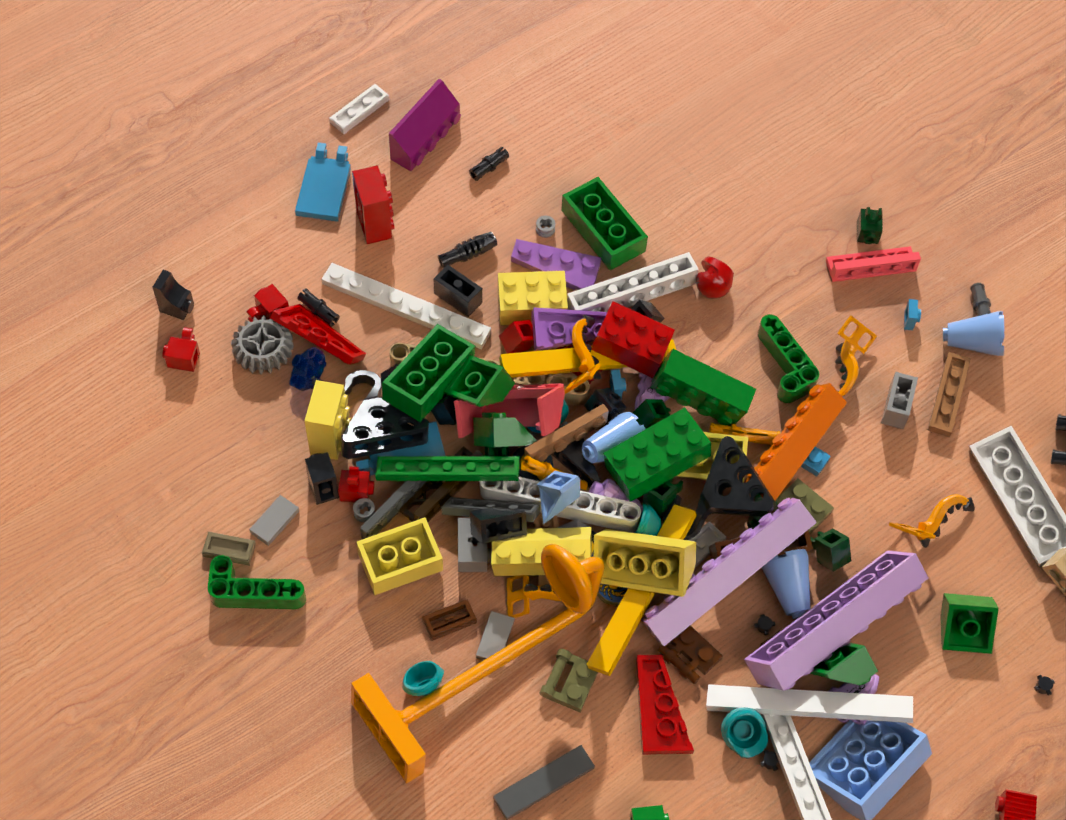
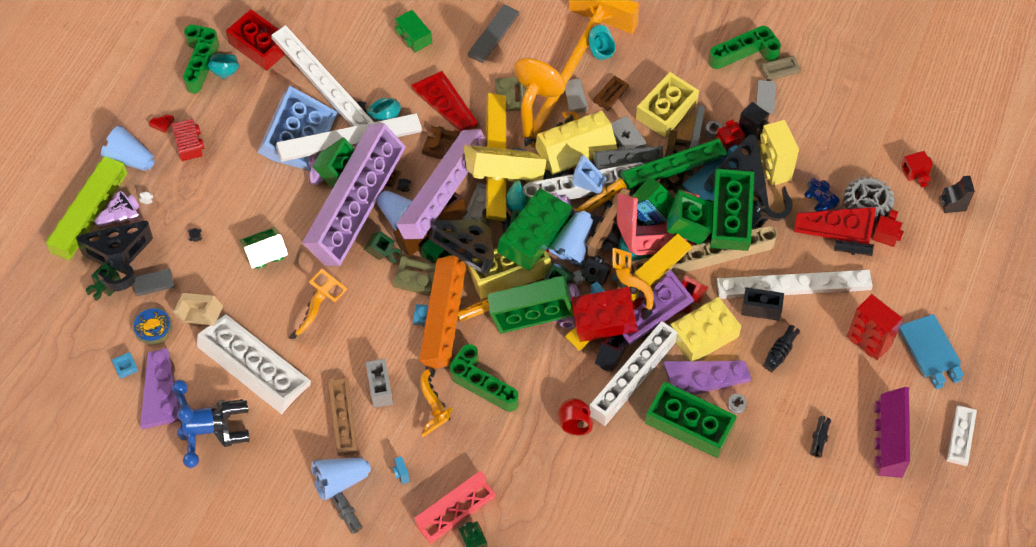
camera: 155 degrees right, 0 degrees up
(496, 524) = (618, 134): black arch -> none

